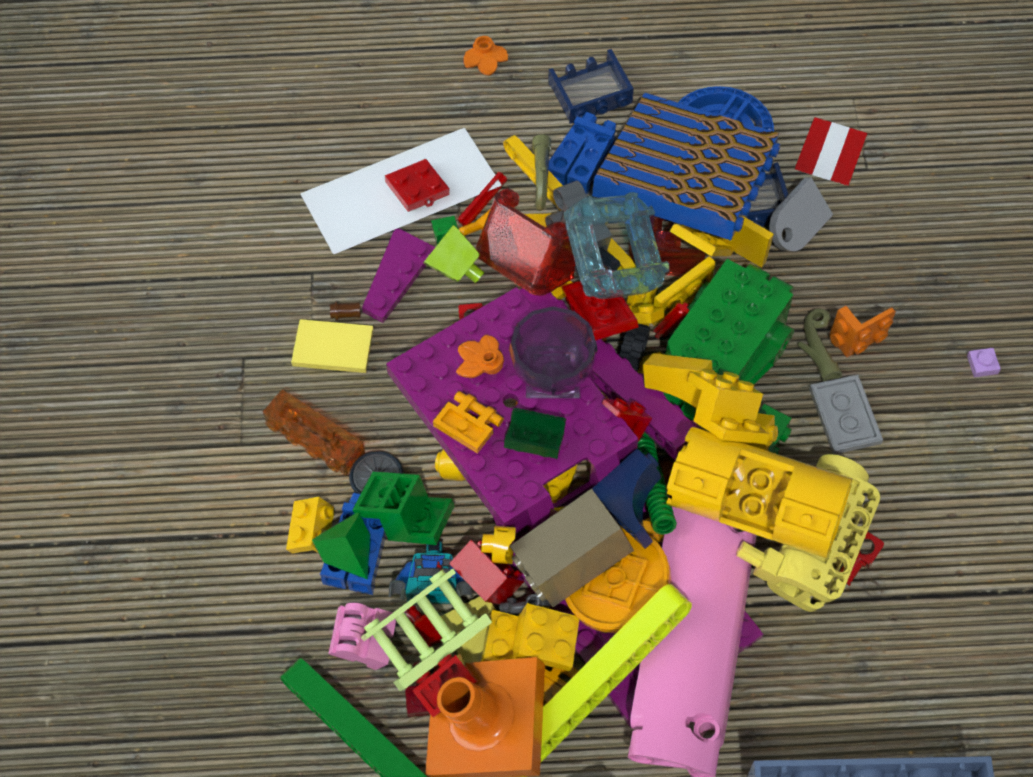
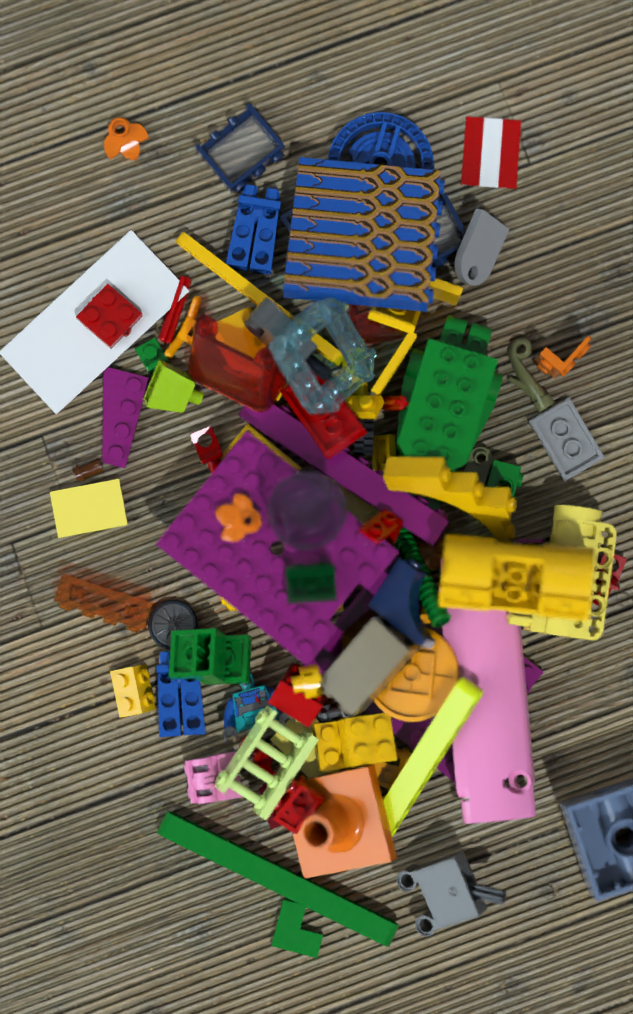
camera: 20 degrees left, 25 degrees up
(346, 546) = (174, 708): green slope -> none
(463, 426) = (245, 592): light orange plate -> none
(541, 147) = (216, 245): olive plant -> none
(728, 407) = (470, 508): yellow bracket -> none

